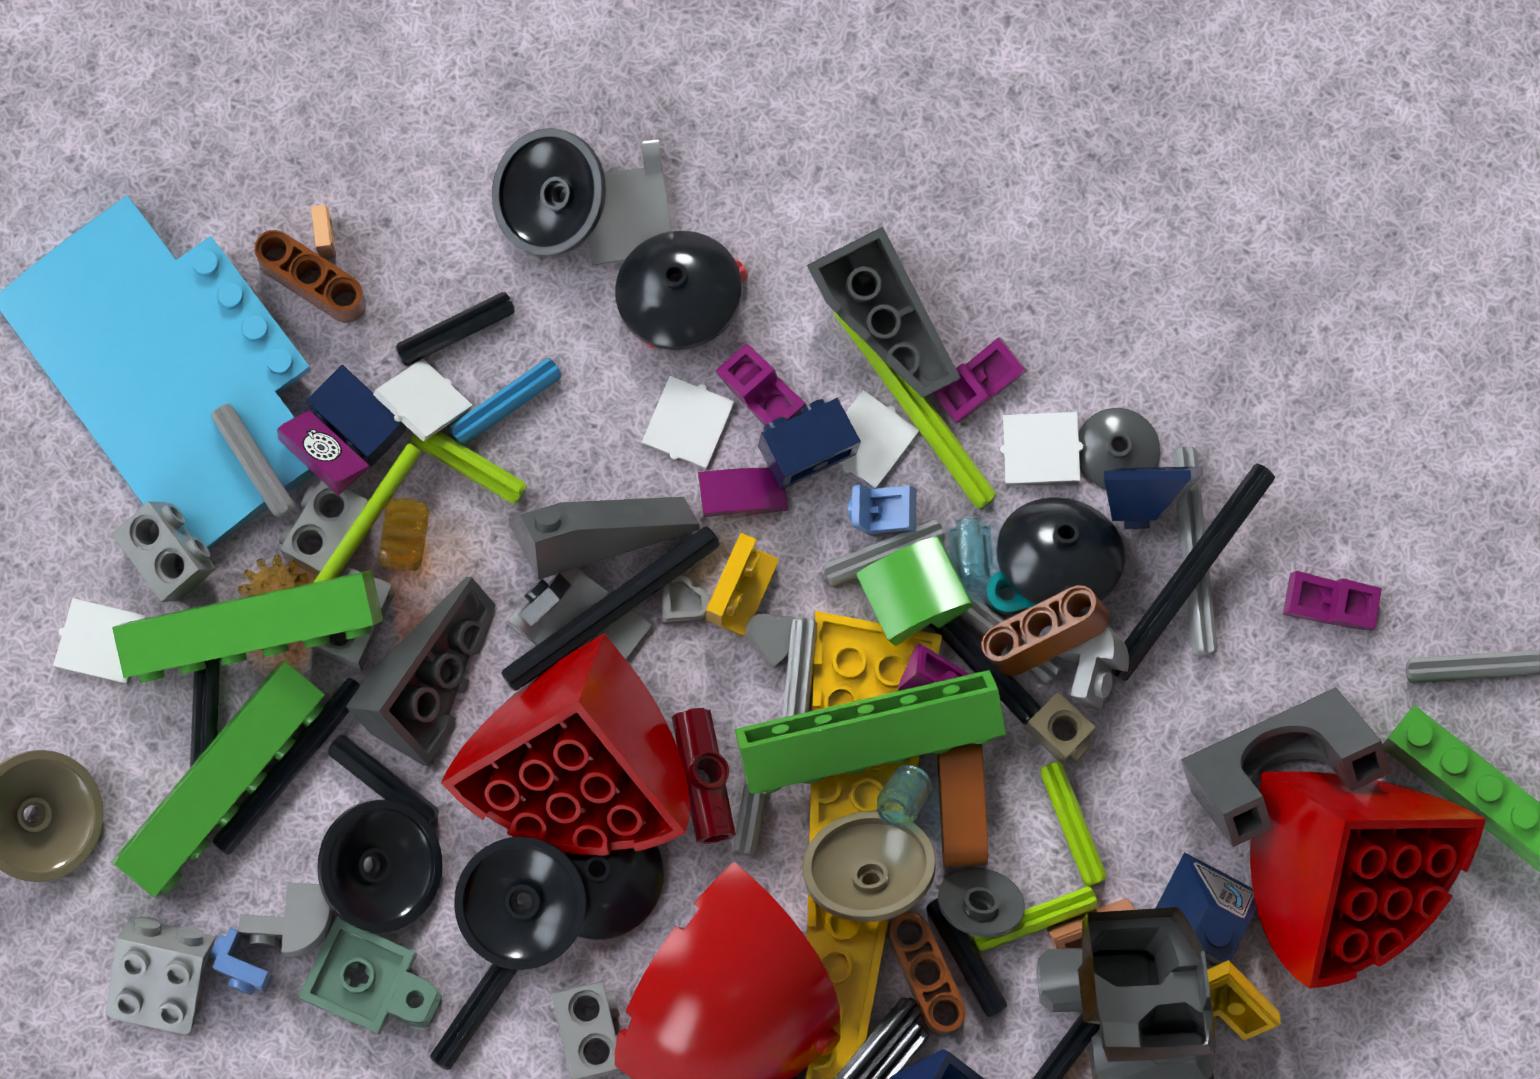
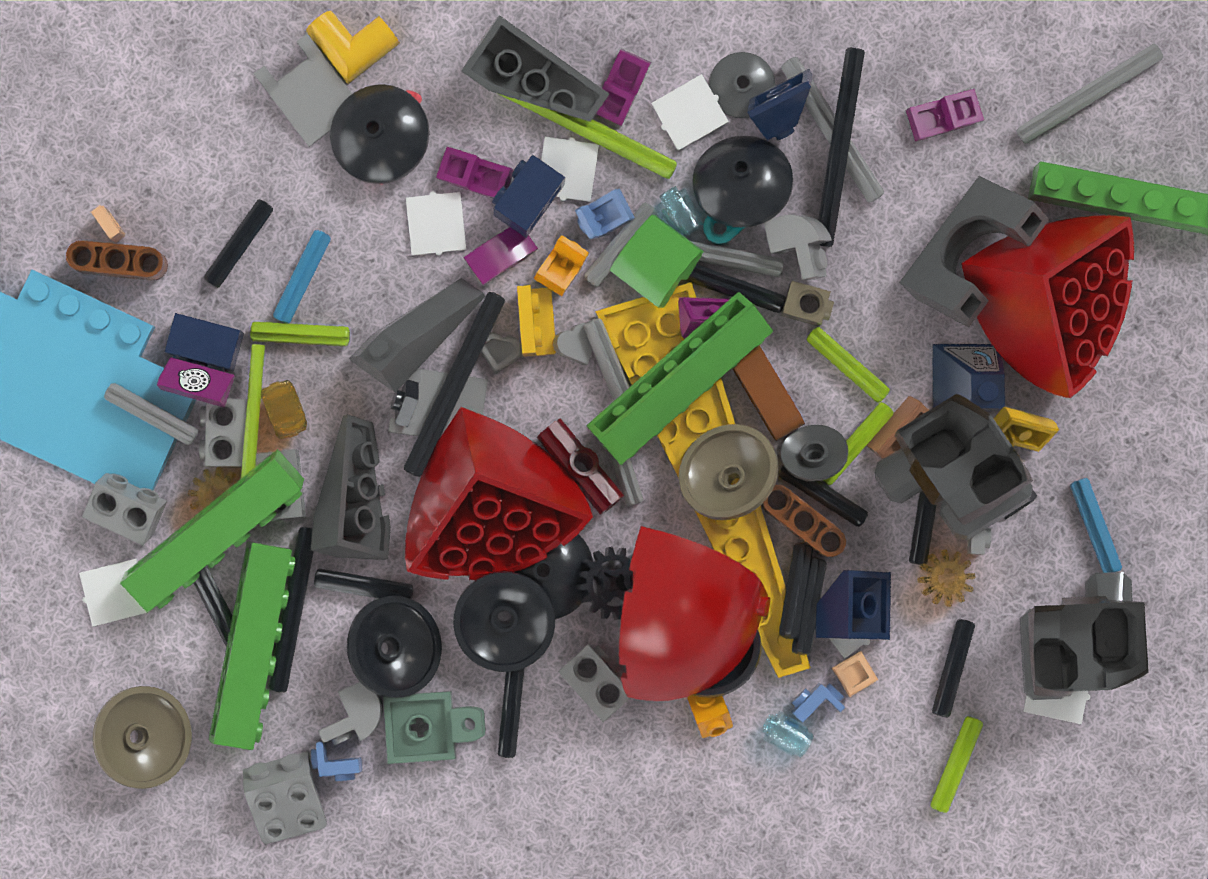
camera: 25 degrees left, 10 degrees up
(422, 400) = (244, 307): white piece -> none
(530, 186) = (235, 114): black dish -> none
(661, 911) = (601, 574): none -> black gear
(692, 186) = (351, 53): none -> yellow brick
(804, 540) = (561, 265): none -> light orange bracket
(904, 796) = (726, 410): clear light blue brick -> none
(1066, 630) = (748, 250): dark orange beam -> none

